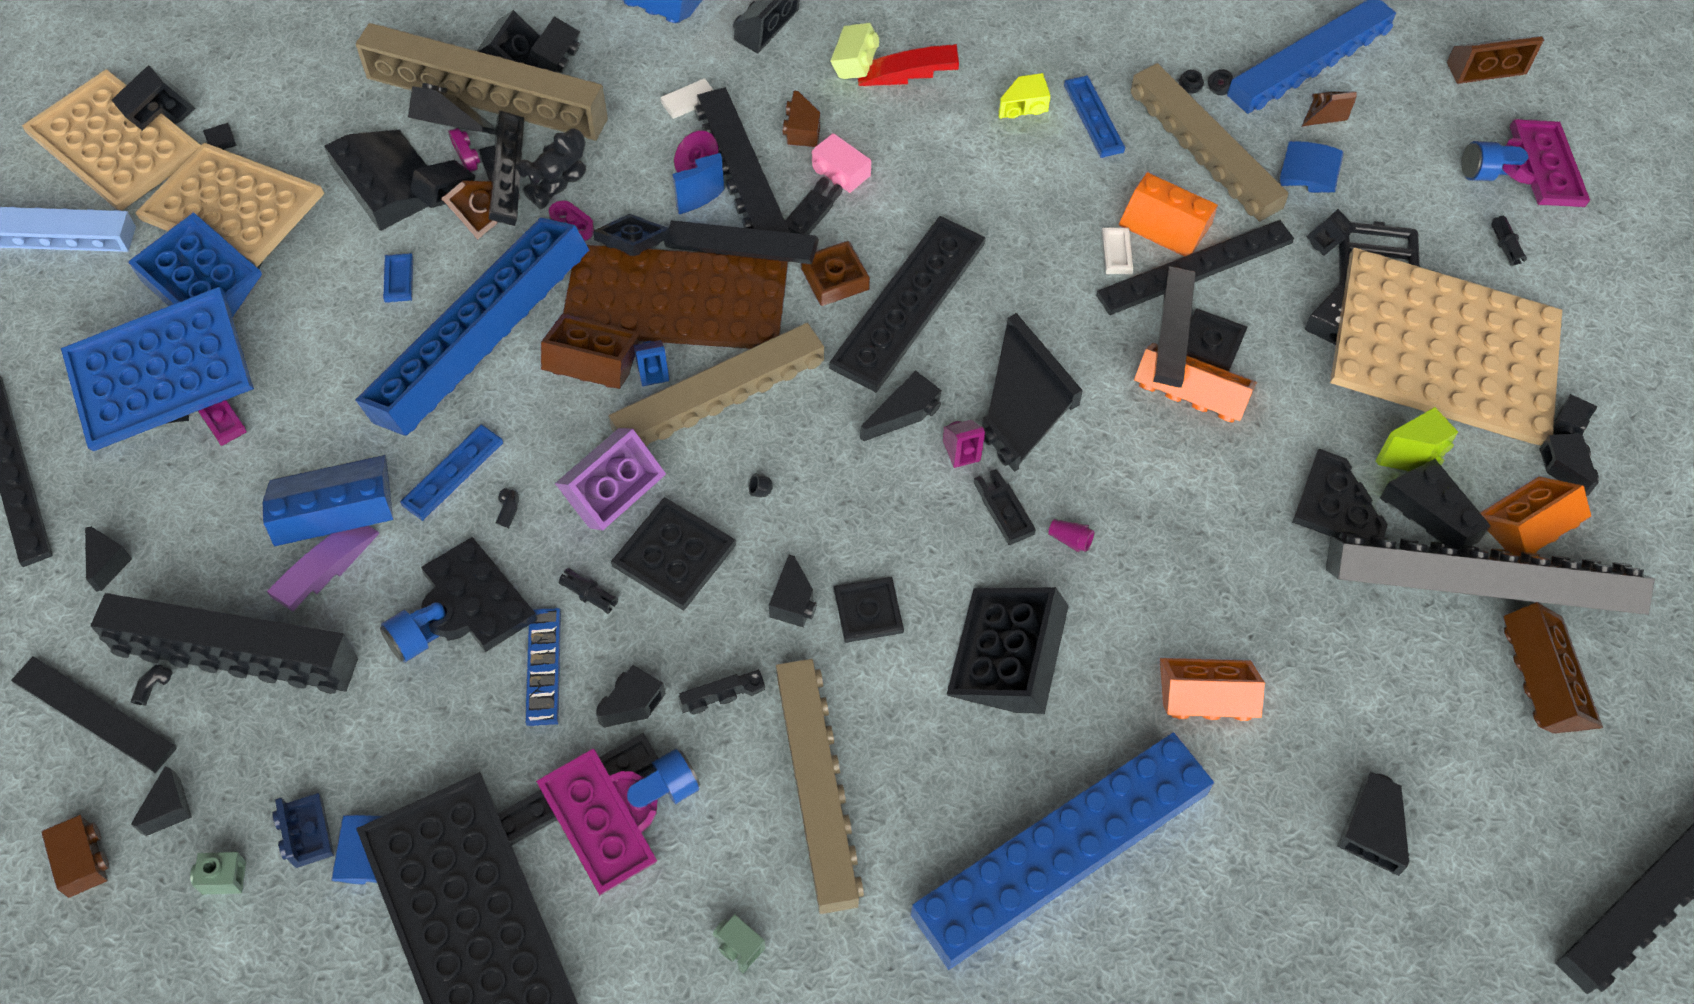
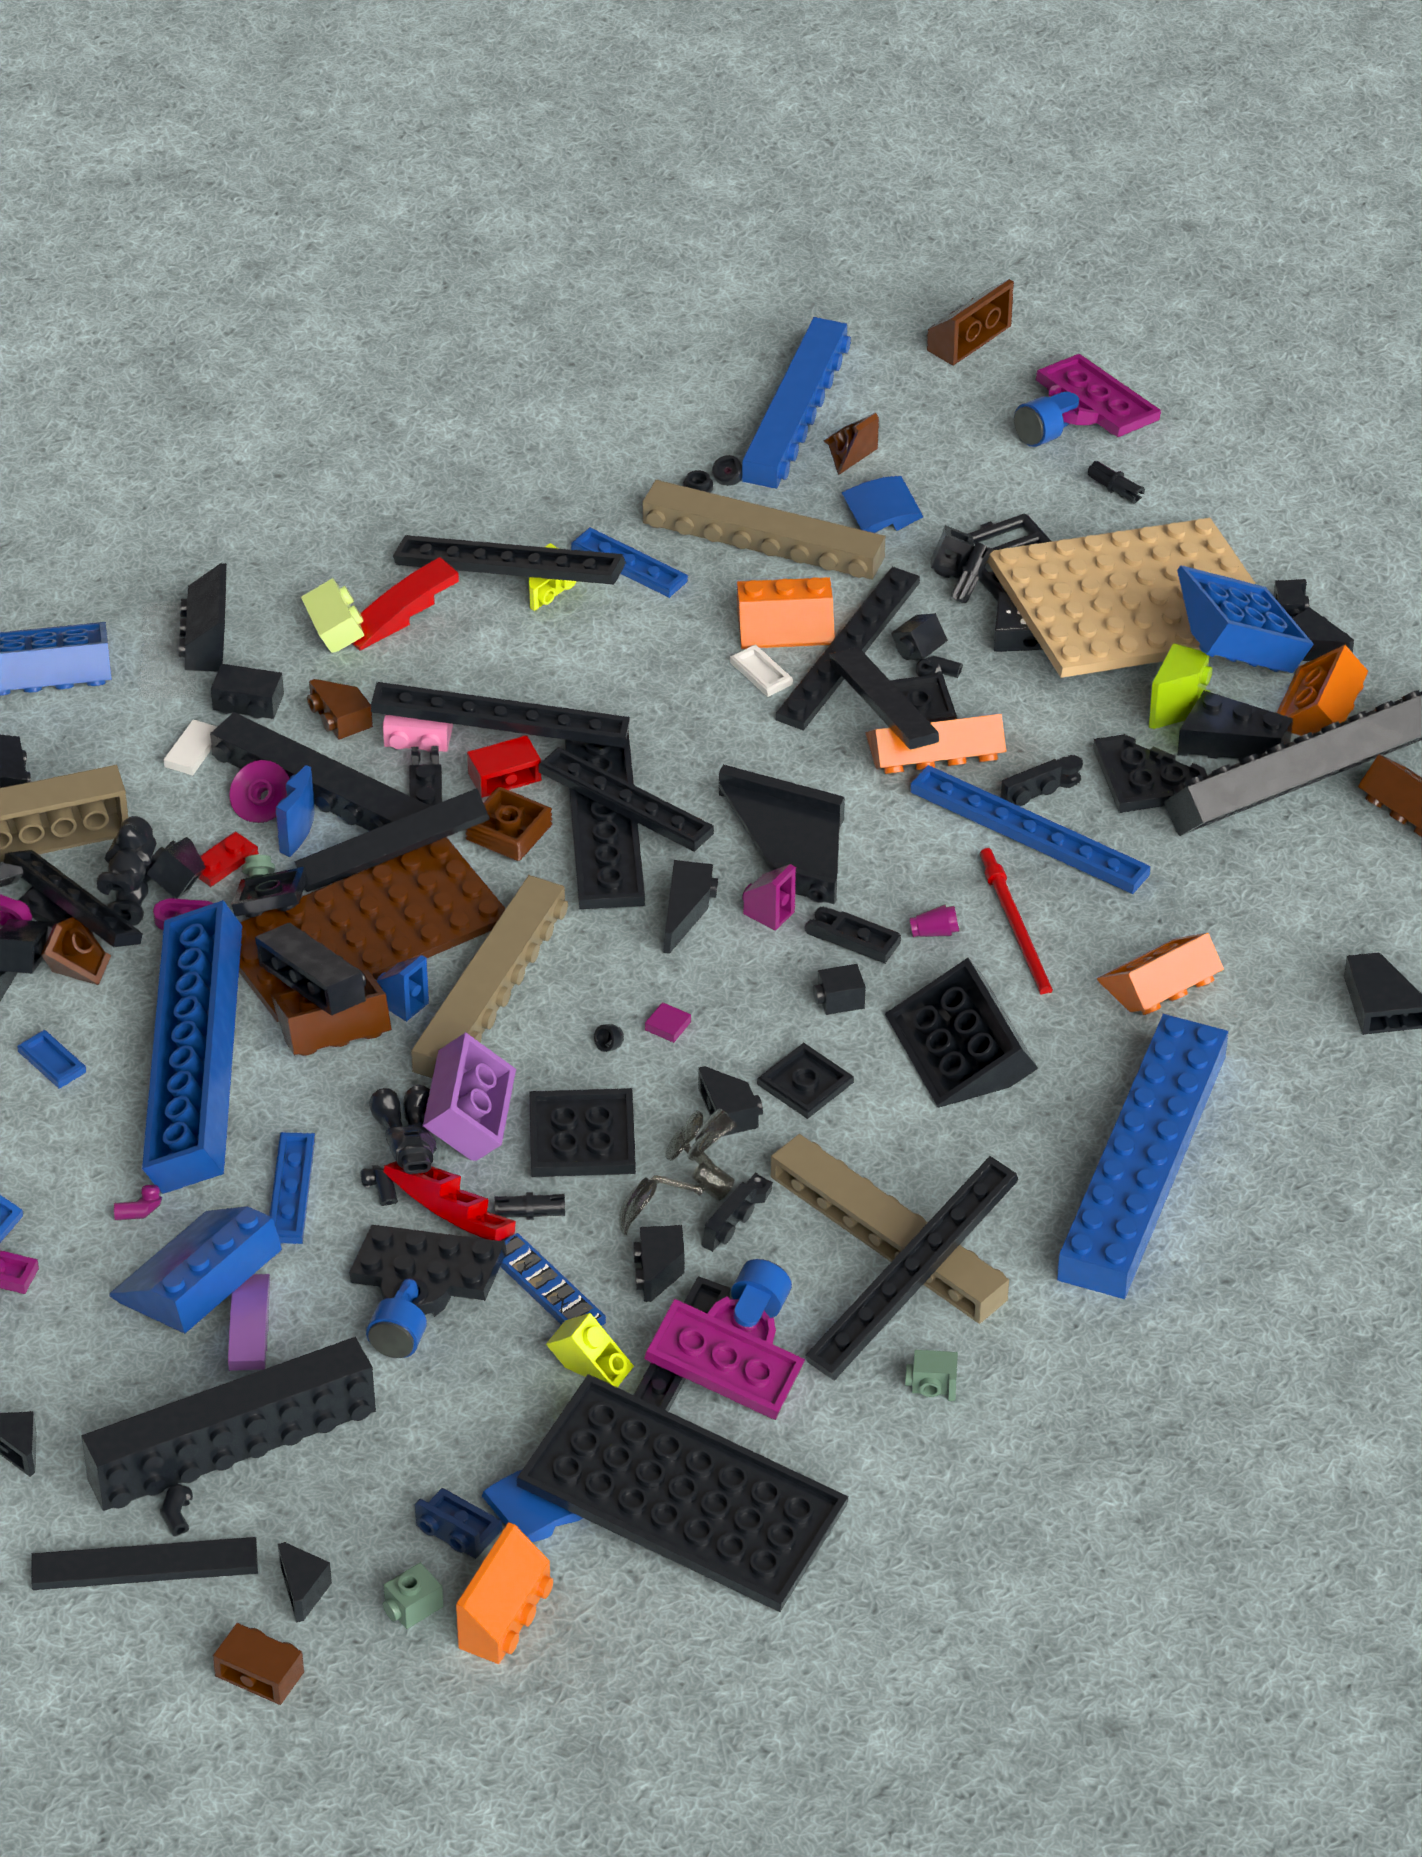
camera: 35 degrees left, 15 degrees down
(264, 923) = (502, 1596): none -> orange slope
(346, 427) = (142, 1207): none -> magenta arm
(516, 747) = (588, 1349): none -> neon yellow slope
(535, 551) = (442, 1195): none -> red slope
(539, 490) = (412, 1144): none -> black piece
(588, 313) = (311, 969): none -> black brick
(589, 181) = (177, 867): none -> black slope
(634, 191) = (226, 858): none -> red plate
(646, 210) = (258, 865): none -> sand green plate
(720, 631) = (707, 1174): none -> clear smoke plant
(754, 76) = (247, 691): none -> black brick
(791, 839) = (911, 1268): none -> black plate
(812, 498) = (668, 1022): none -> magenta tile
(871, 226) = (504, 765): none -> red brick
(894, 187) = (500, 714): none -> black plate
(928, 302) = (626, 799): none -> black tile
(952, 549) = (840, 989): none -> black brick
(1003, 73) = (512, 559): none -> black plate
(1151, 523) = (997, 877): none -> red bar
(1210, 500) = (1030, 829): none -> blue plate
(1249, 318) = (938, 665): none -> black arm
(1249, 460) = (1042, 780): none -> black hinge
(1250, 288) = (919, 636): none -> black brick
(1332, 257) = (971, 572): none -> black axle
(1507, 417) = (1241, 621): none -> blue slope

